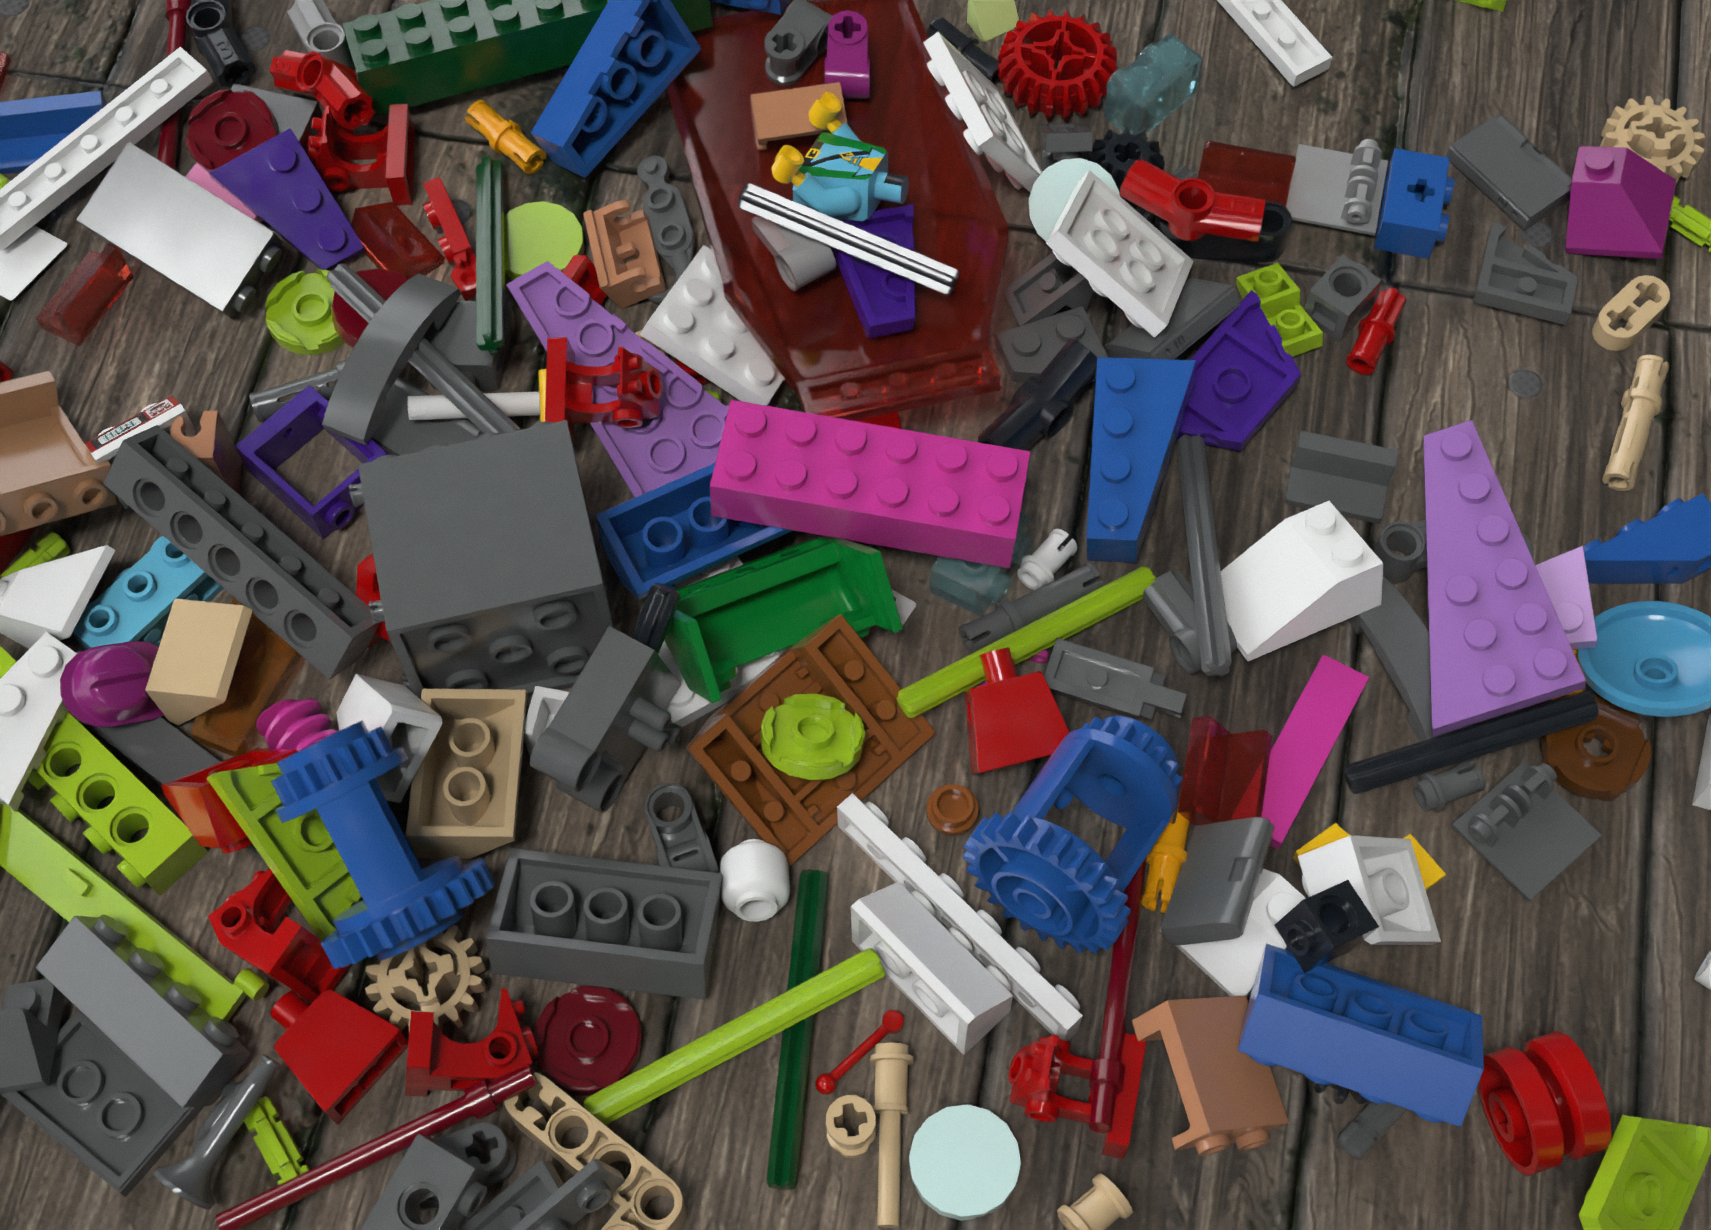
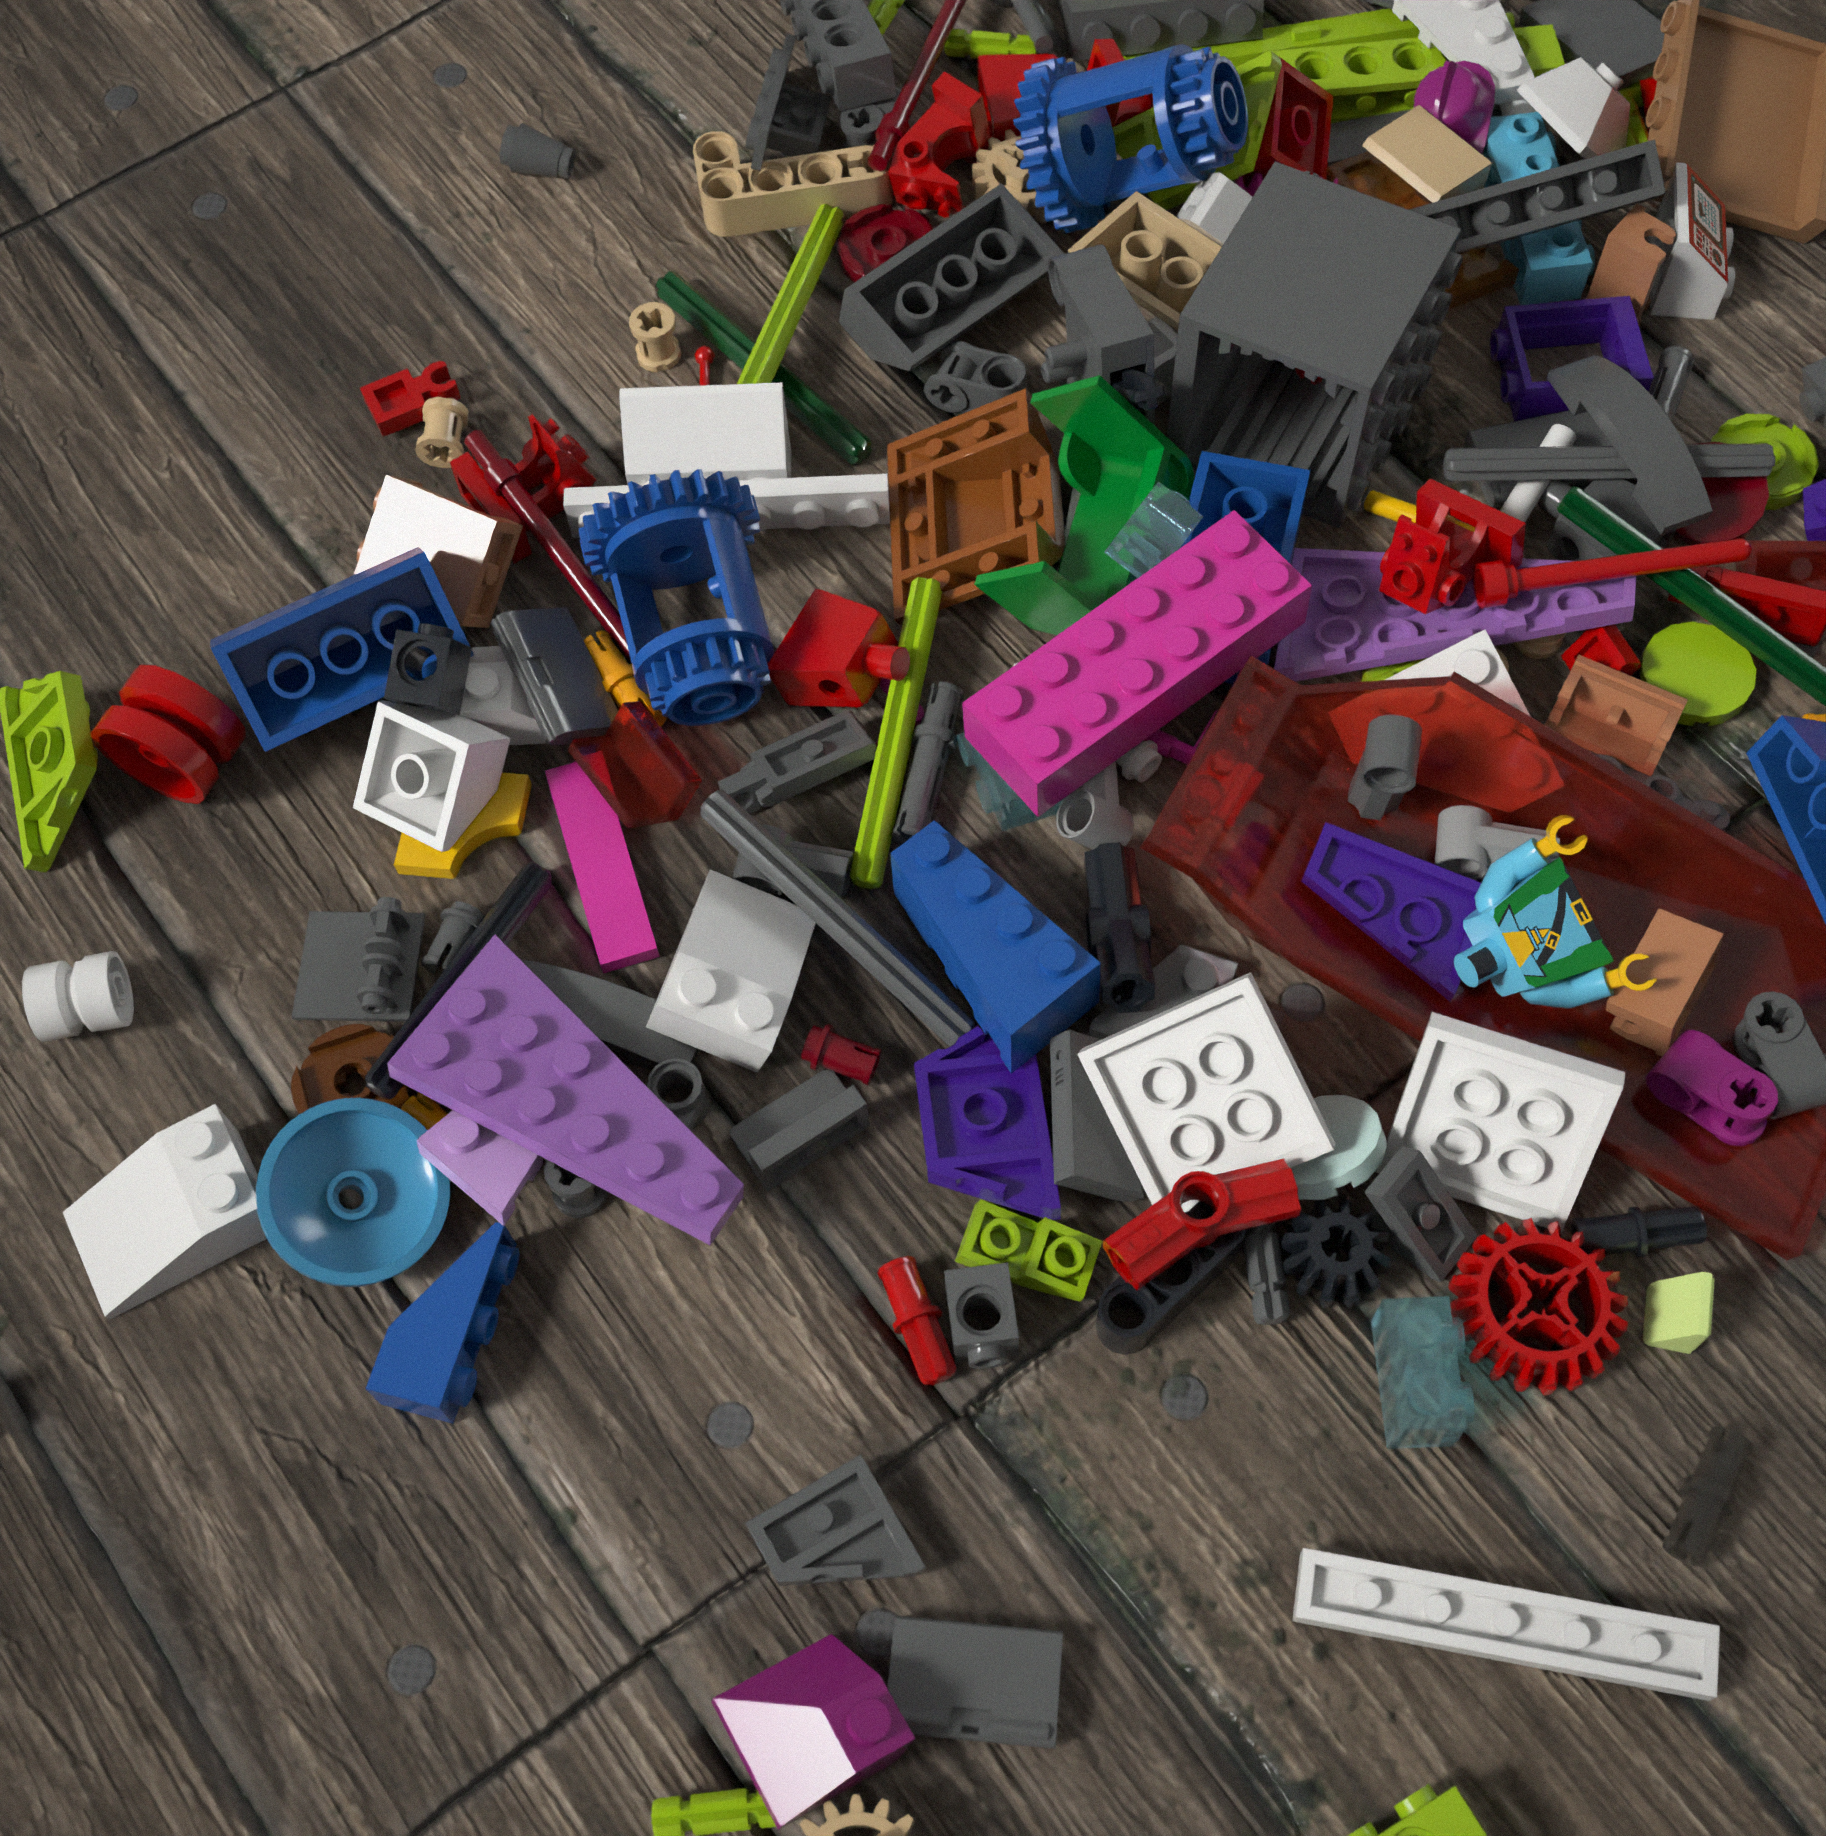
camera: 135 degrees right, 0 degrees up
(598, 341) = (1498, 582): none -> red piece
(754, 880) = (893, 402): white head -> none
(756, 546) = (1154, 531): none -> clear light blue brick
(805, 309) = (1386, 766): none -> dark grey piece
(812, 737) = (962, 498): lime tile -> none
(848, 239) = (1438, 871): axle -> none
(890, 1103) = (642, 372): tan pin -> none
(952, 809) = (816, 571): dark orange plate -> none
(964, 1162) = (563, 386): light aqua tile -> none
(1041, 566) = (958, 798): white pin -> none
(1247, 171) = (1205, 1353): clear red panel -> none
(1274, 492) = (840, 1054): none -> dark red pin
(1338, 187) = (1121, 1458): light grey hinge -> none
(1413, 203) = (1019, 1468): blue brick -> none
(1637, 318) = (709, 1610): tan beam -> none
(1640, 407) = (589, 1490): tan pin -> none

